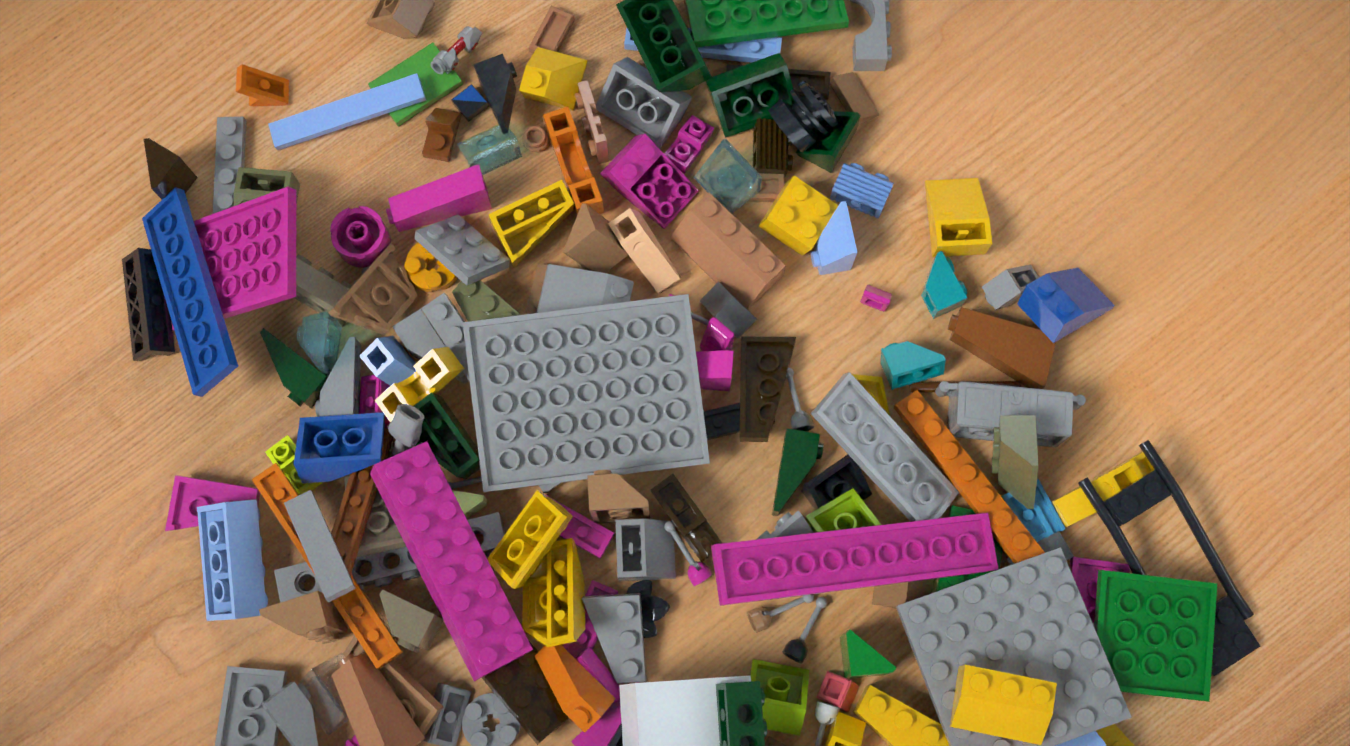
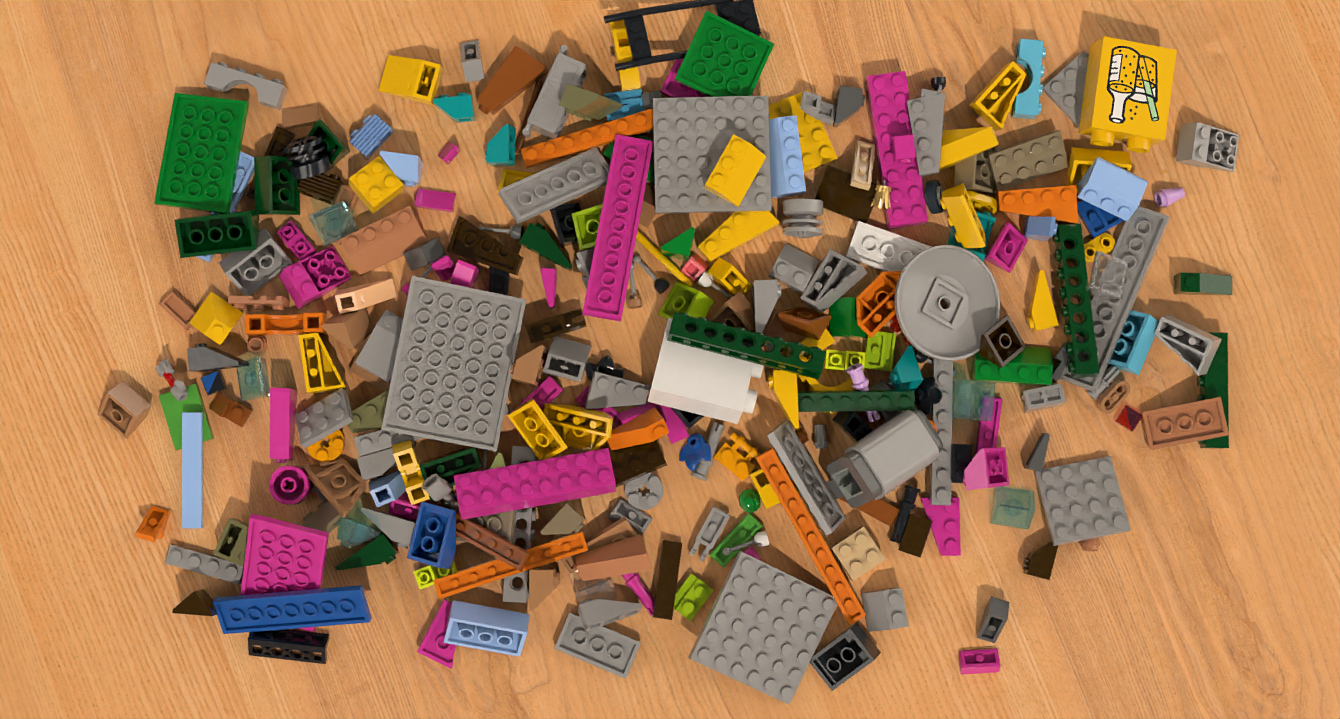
camera: 75 degrees left, 10 degrees up
(319, 546) = (499, 563): light grey tile -> none
(697, 570) = (592, 331): hinge -> none
(745, 490) = (549, 279): none -> dark pink slope
(805, 300) = (435, 200): none -> dark pink slope
(833, 641) = (665, 261): none -> yellow piece
(1063, 302) = (495, 32): blue slope -> none

